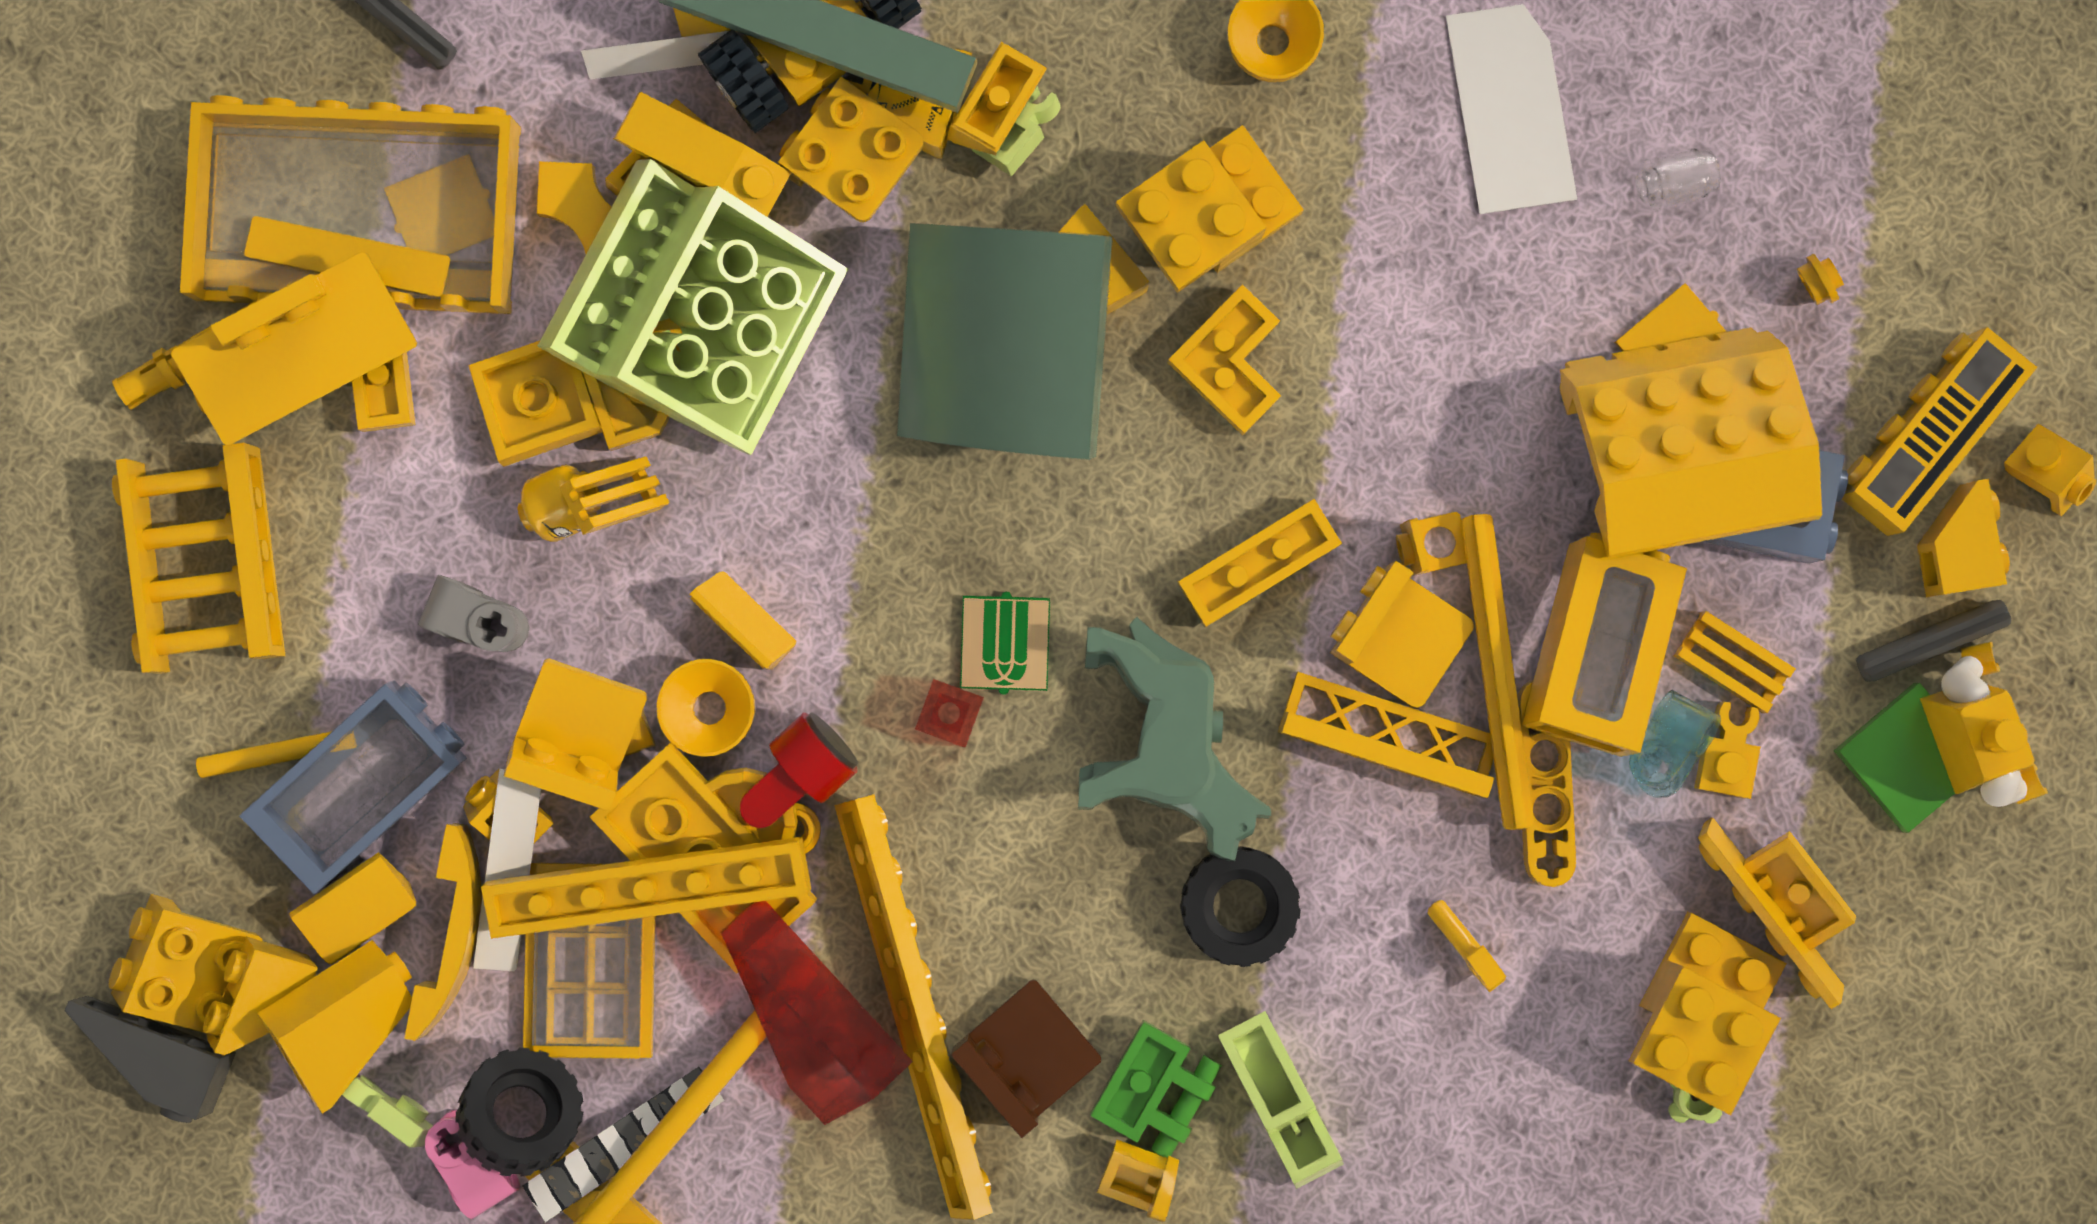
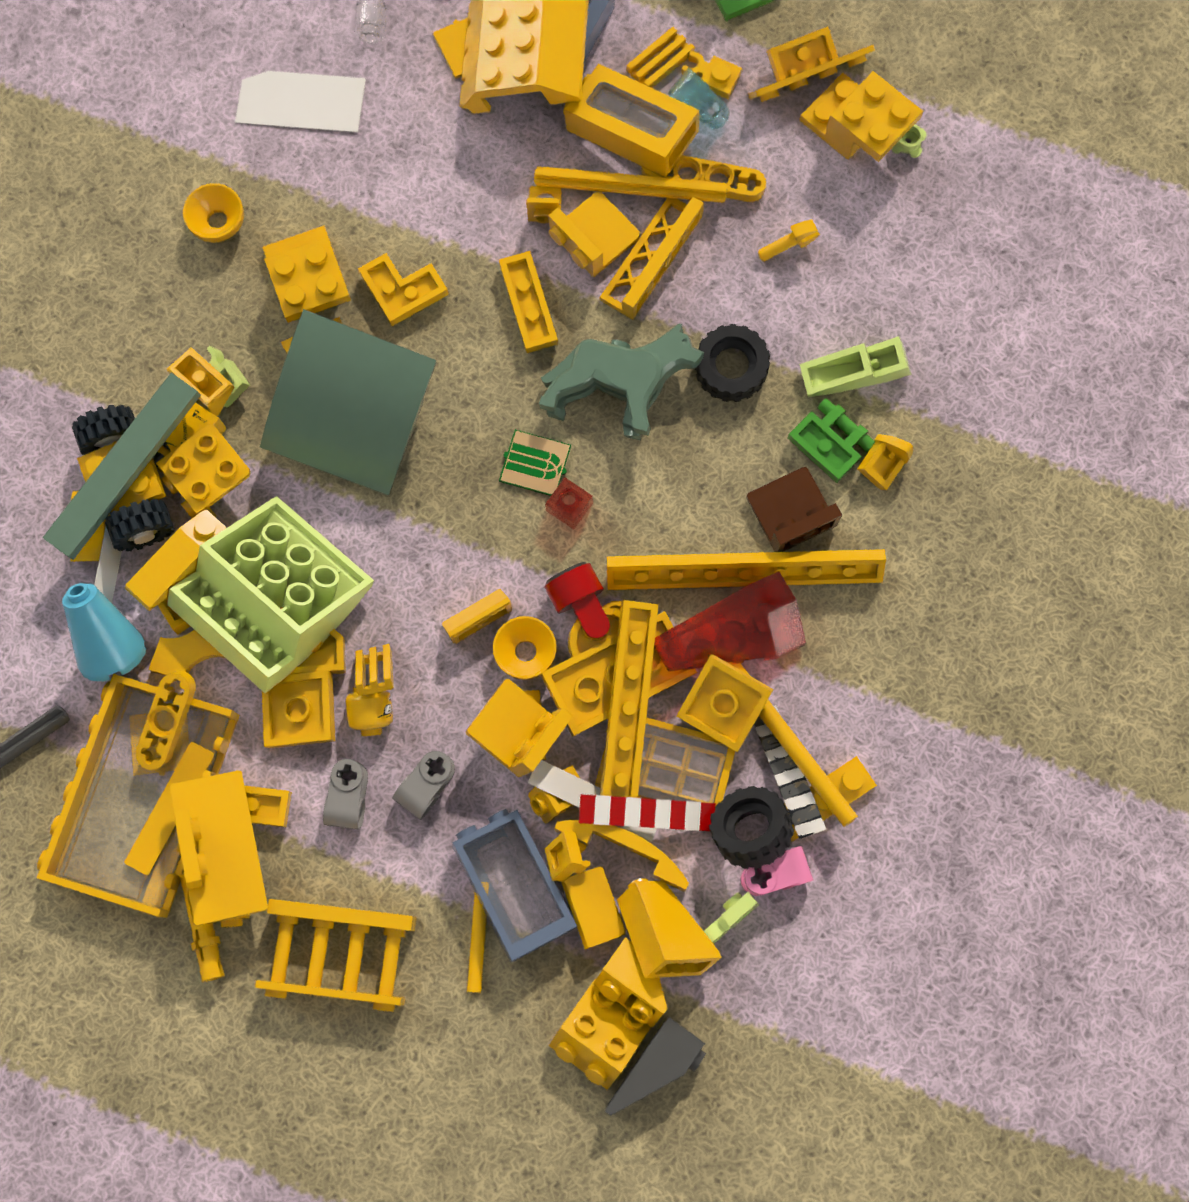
camera: 70 degrees left, 10 degrees down
(407, 851) = (565, 856): none -> yellow tile
(419, 507) = (346, 802): none -> light grey piece
(477, 227) = (166, 746): none -> yellow beam
(502, 952) = (645, 812): none -> sticker
(556, 83) = (100, 634): none -> medium azure cone
(694, 1028) = (724, 702): none -> yellow plate

